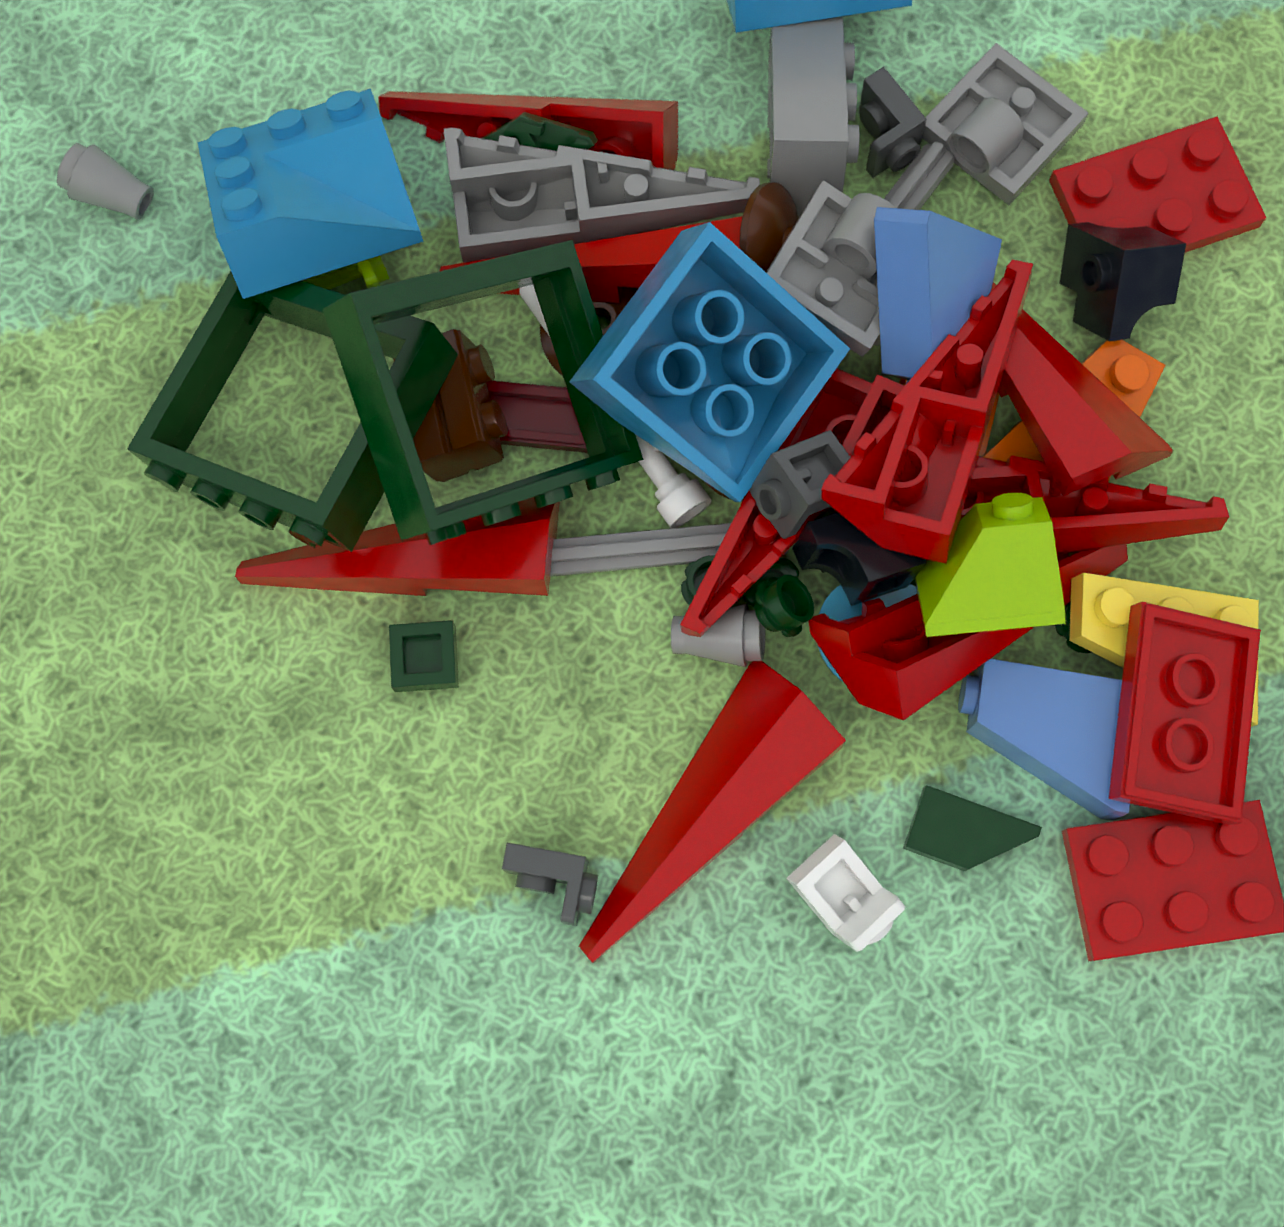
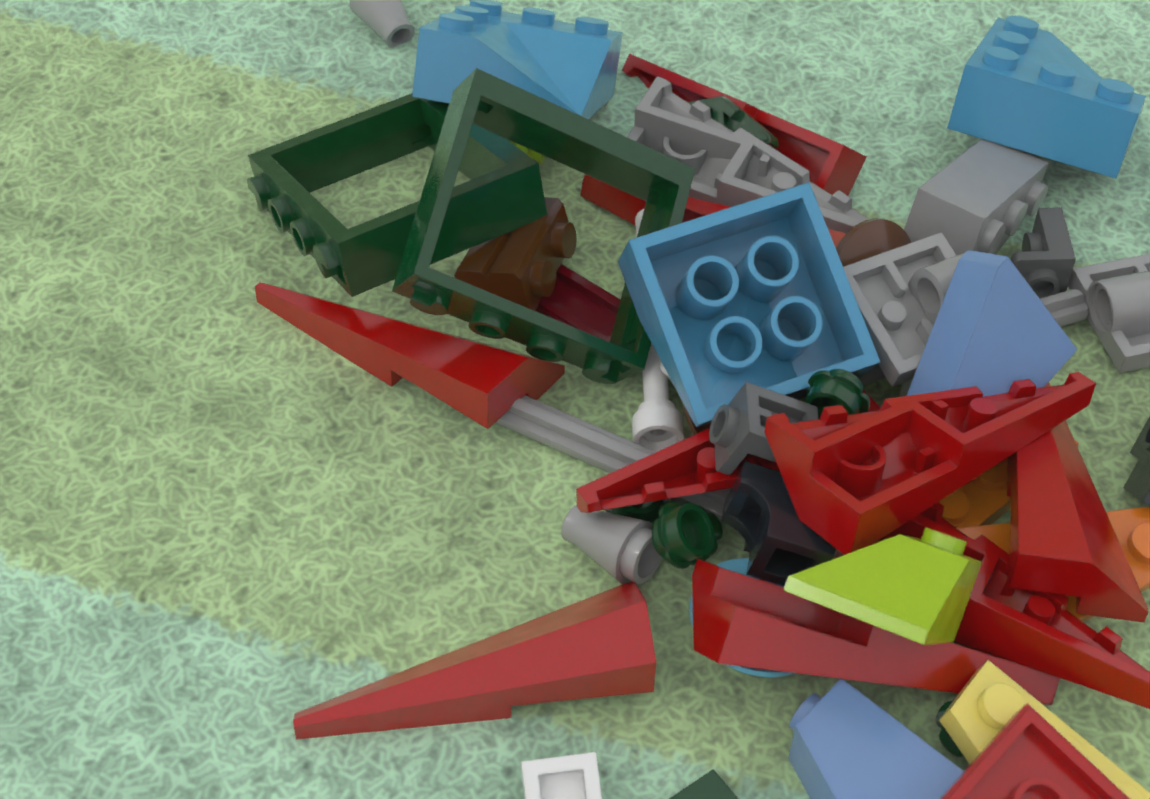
camera: 30 degrees right, 25 degrees down
(423, 656) = (351, 418): dark green plate -> none
(542, 868) = (319, 633): dark grey bracket -> none
(839, 409) = (835, 389): none -> dark green plate

